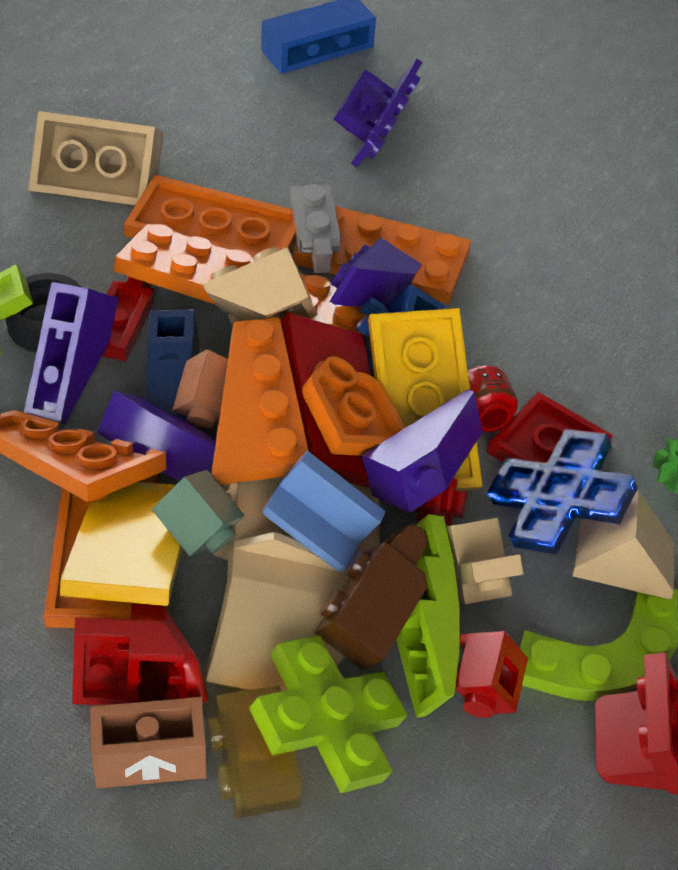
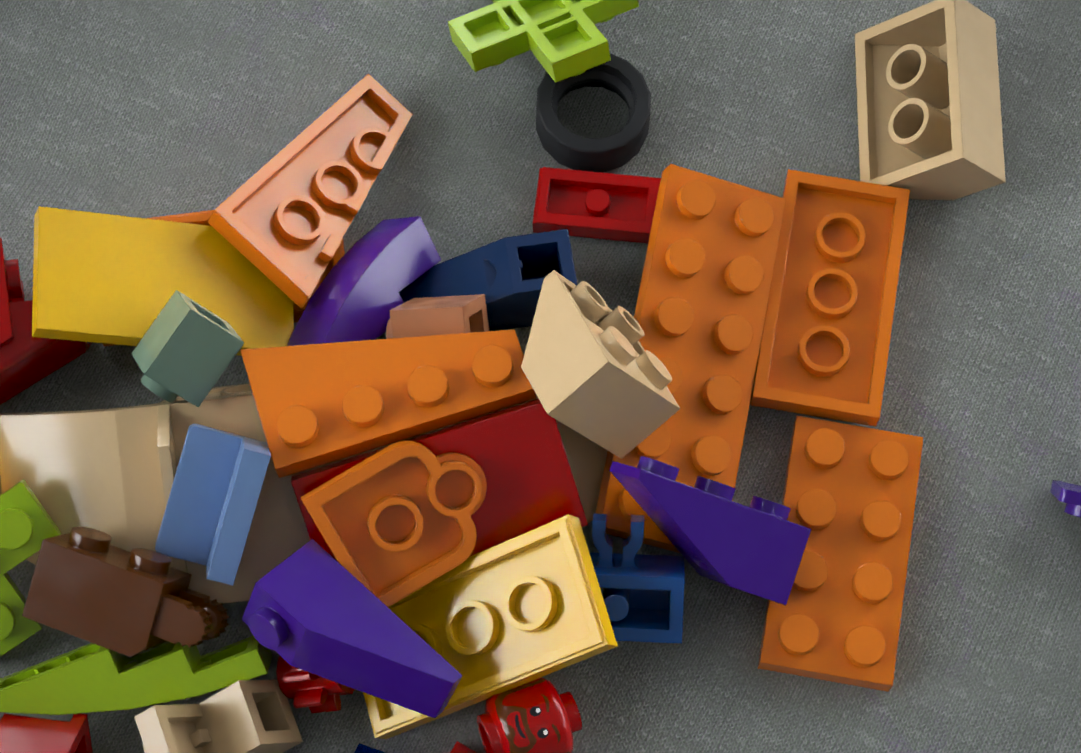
camera: 85 degrees right, 20 degrees up
(69, 348) = (505, 149): dark purple slope -> none
(315, 223) = (842, 434): light grey hinge -> none

